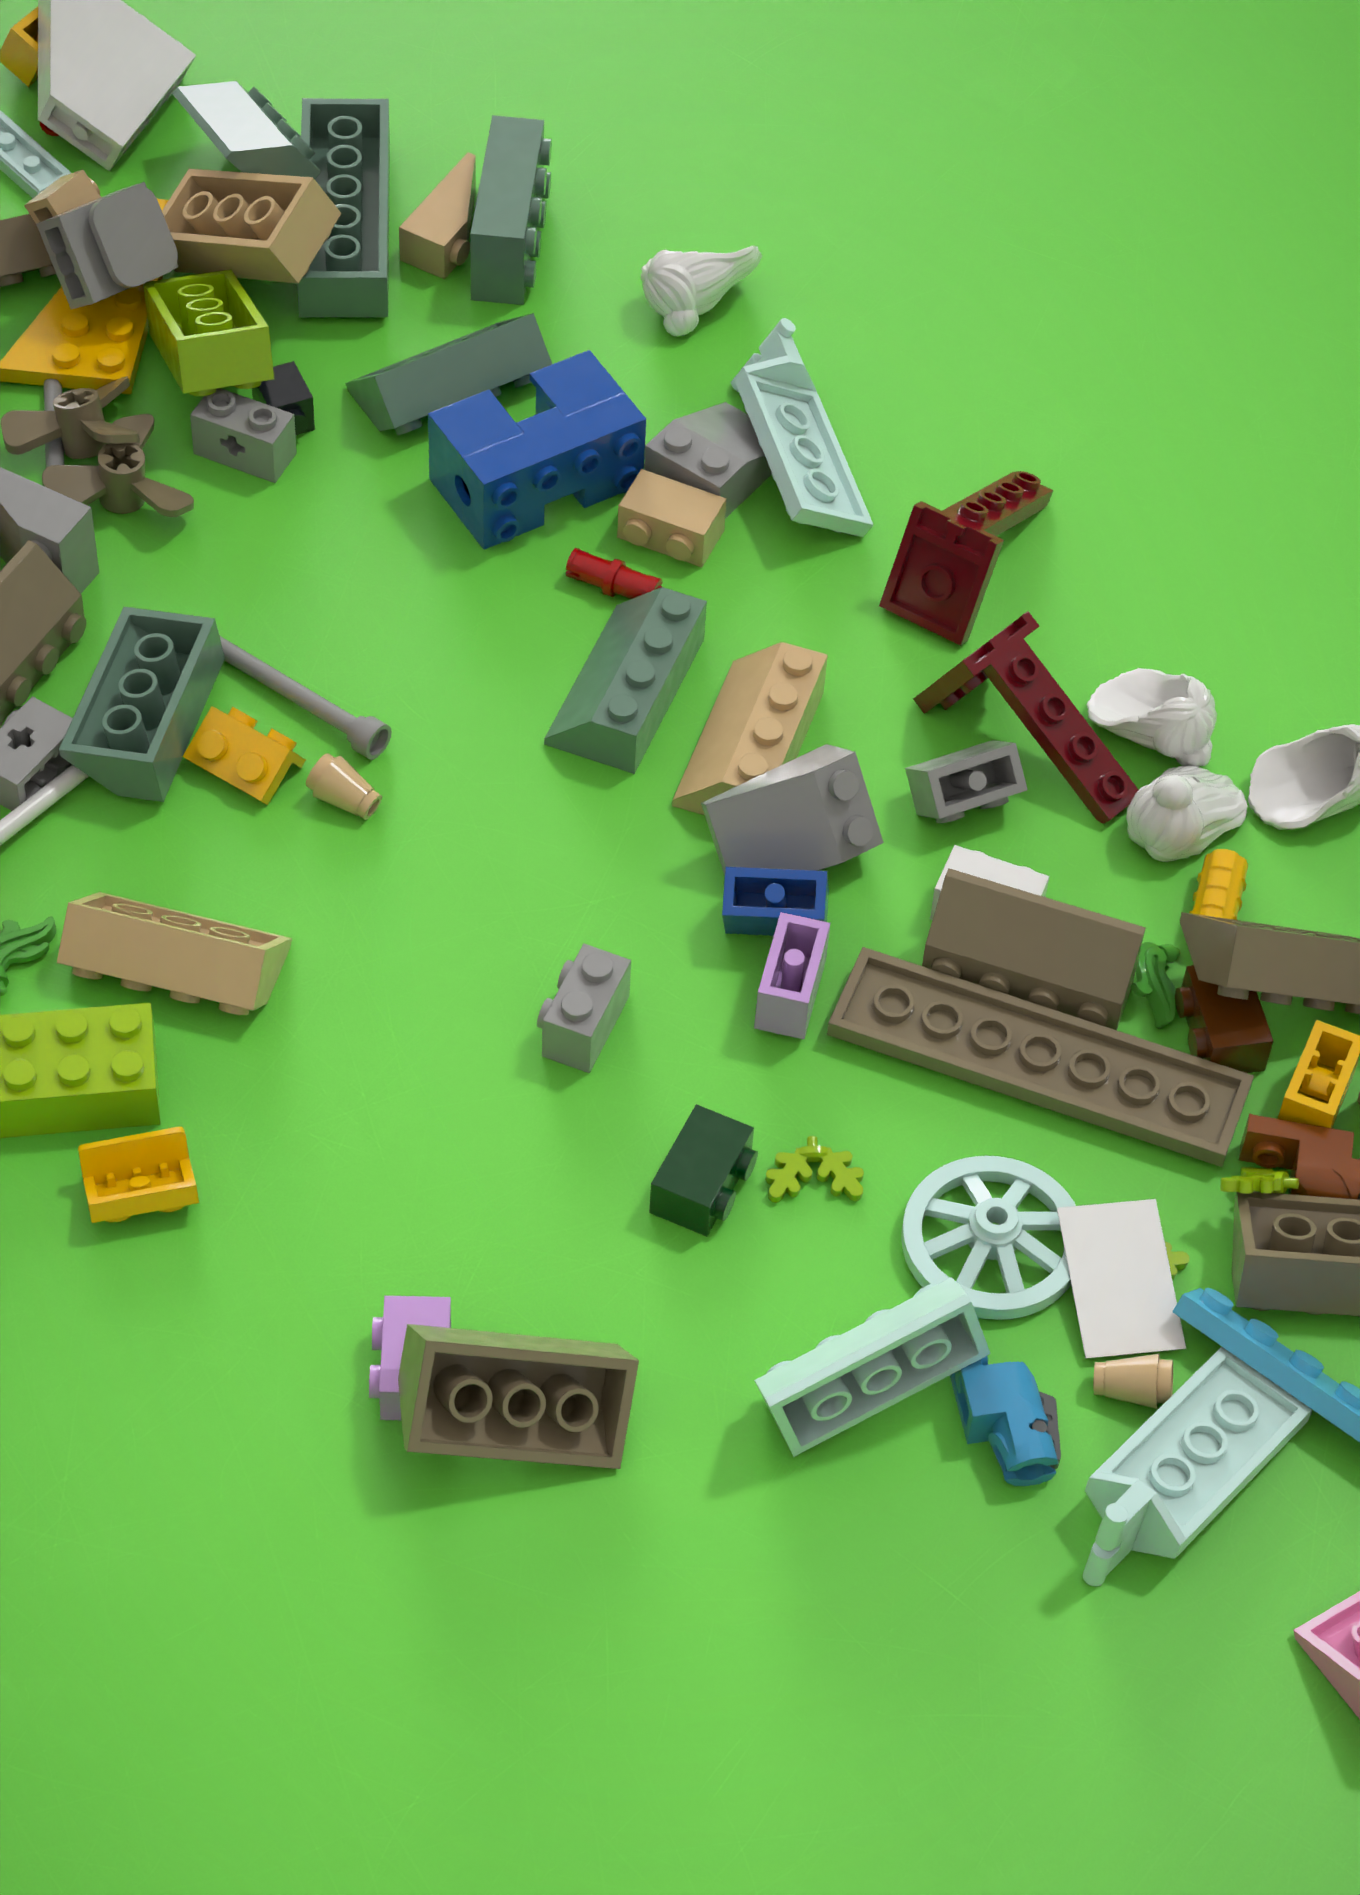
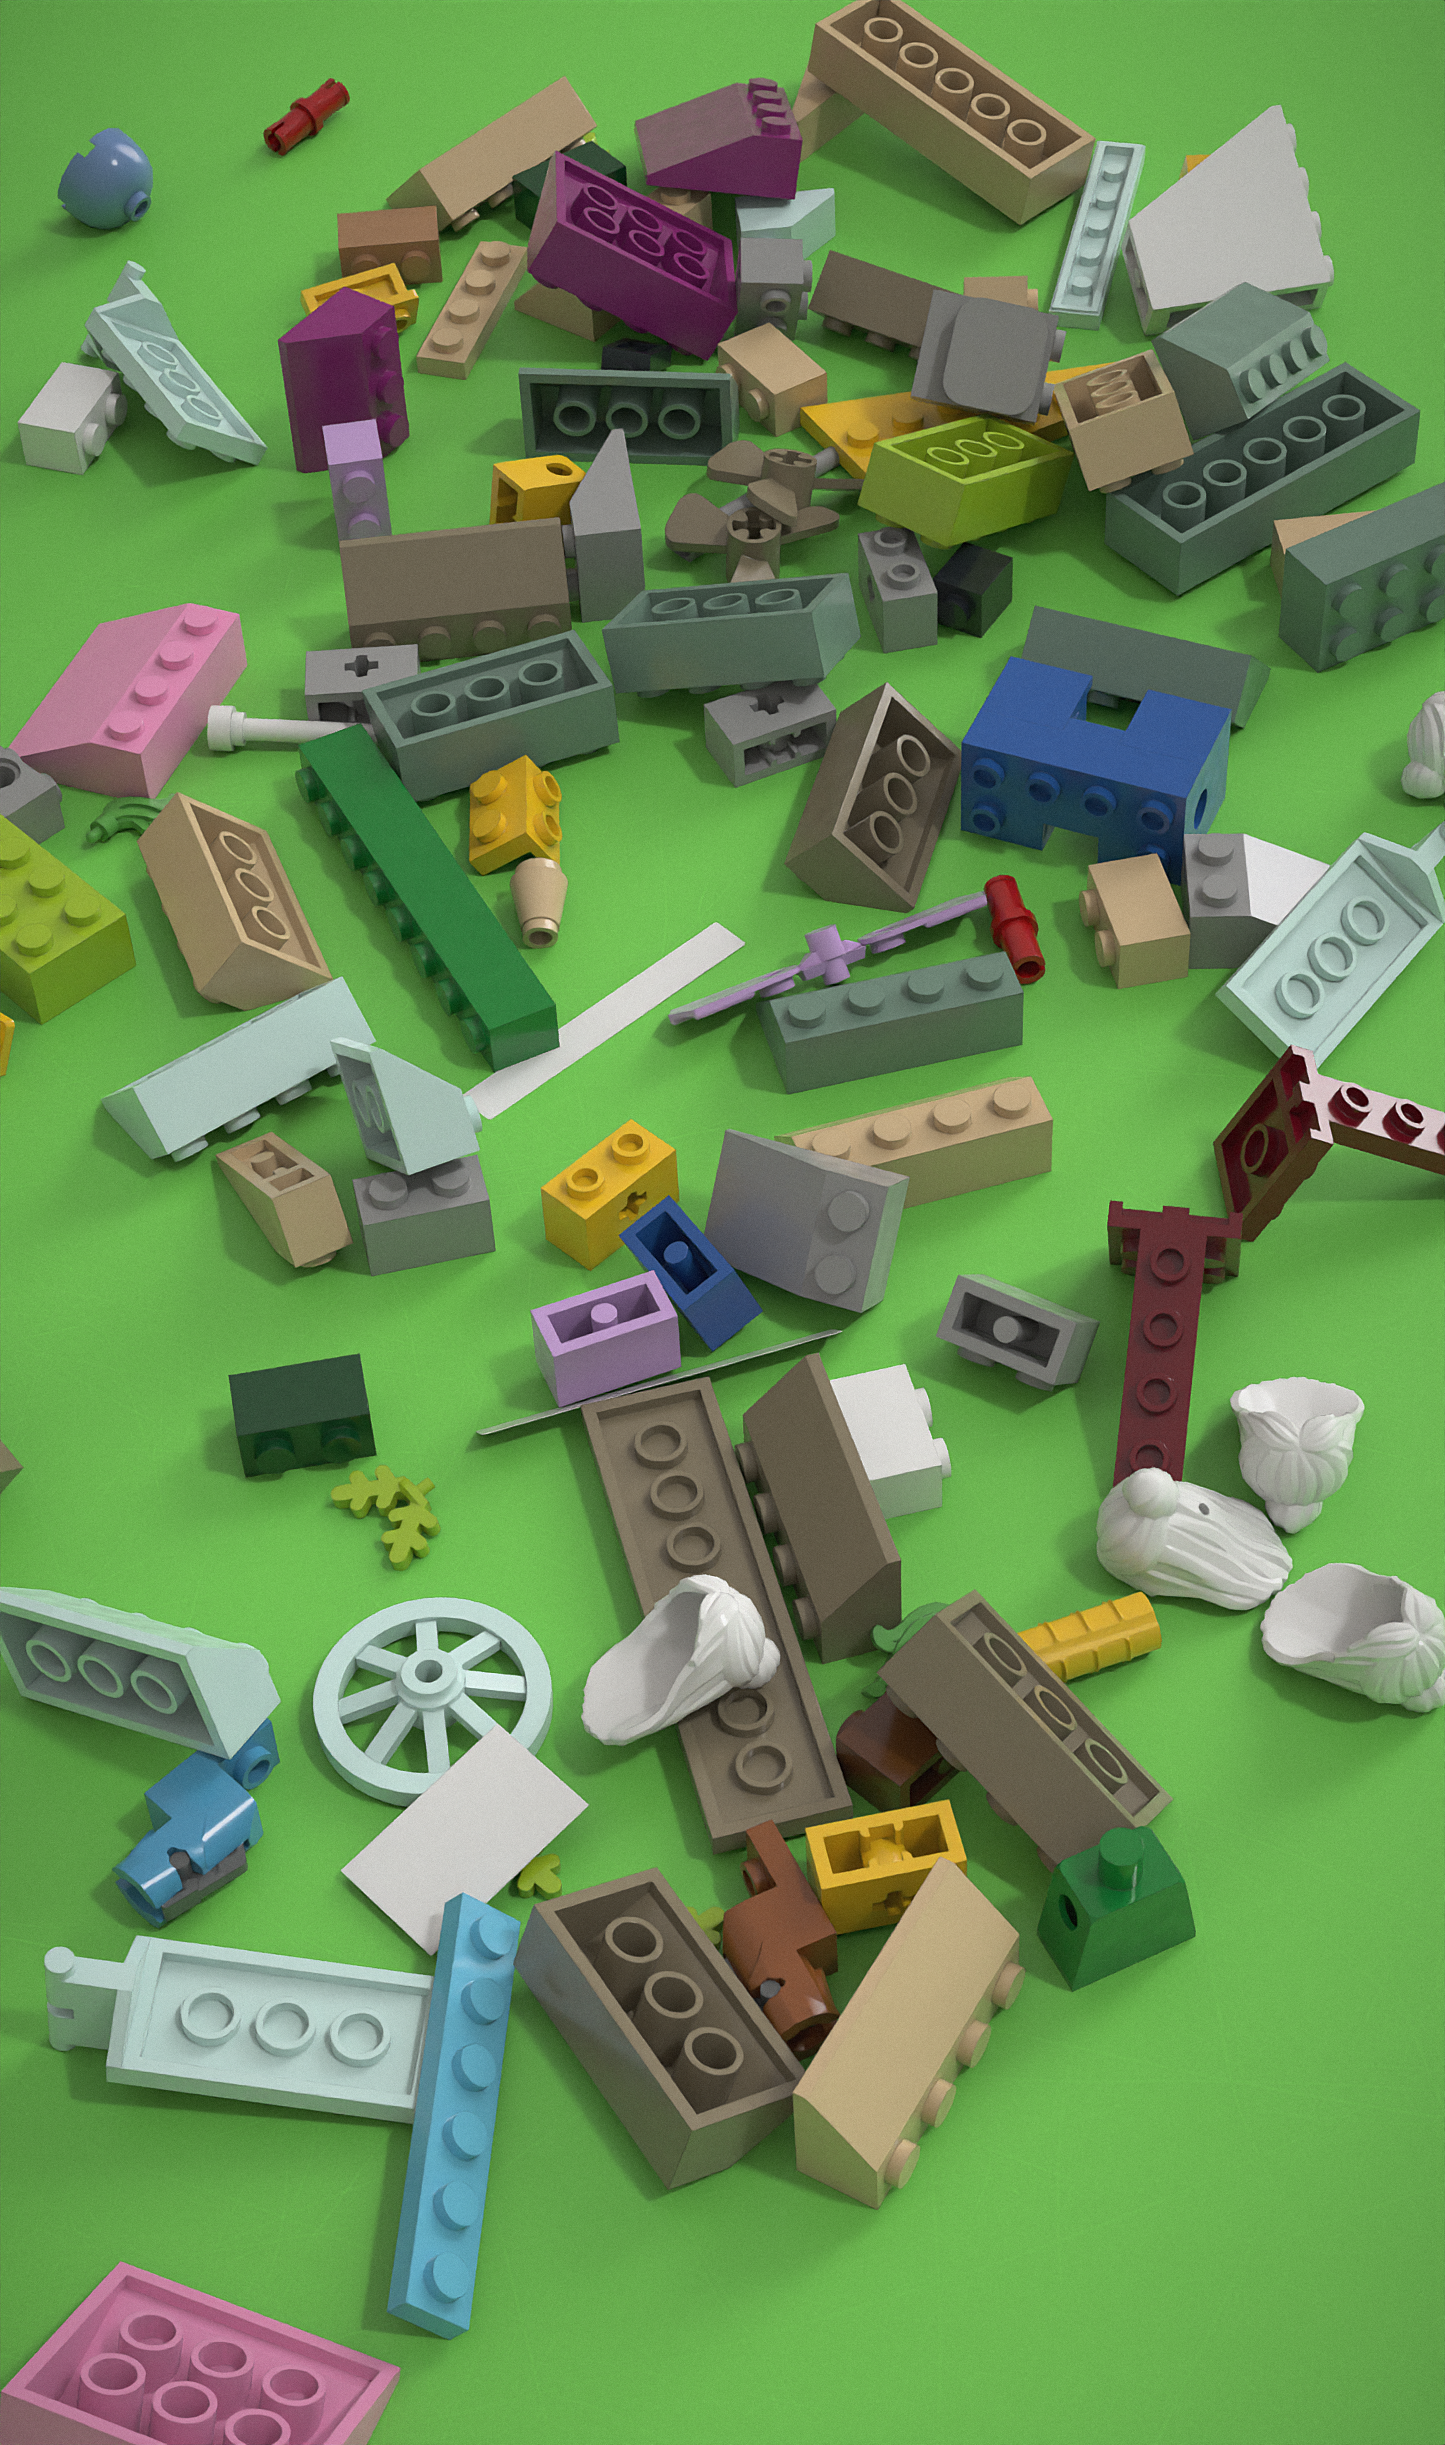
camera: 60 degrees right, 5 degrees down
(228, 530) = (732, 635): none -> sand green brick
(272, 838) = (427, 899): none -> green brick
(303, 575) = (768, 730): none -> light grey brick
(341, 1031) = (238, 1071): none -> light aqua slope
(366, 734) = (622, 880): light grey piece -> none
(432, 571) = (876, 805): none -> dark tan slope
(474, 824) = (607, 1018): none -> white sticker
(495, 1070) = (288, 1199): none -> tan slope
(520, 957) = (404, 1112): none -> light aqua slope
(538, 734) = (827, 958): none -> lavender piece
(660, 904) = (608, 1193): none -> yellow brick
(834, 971) = (659, 1381): none -> white sticker
(1103, 1092) = (677, 1661): none -> white hair
(1135, 1380) = (338, 1924): tan cone -> none
(1260, 1180) = (705, 1898): lime animal -> none

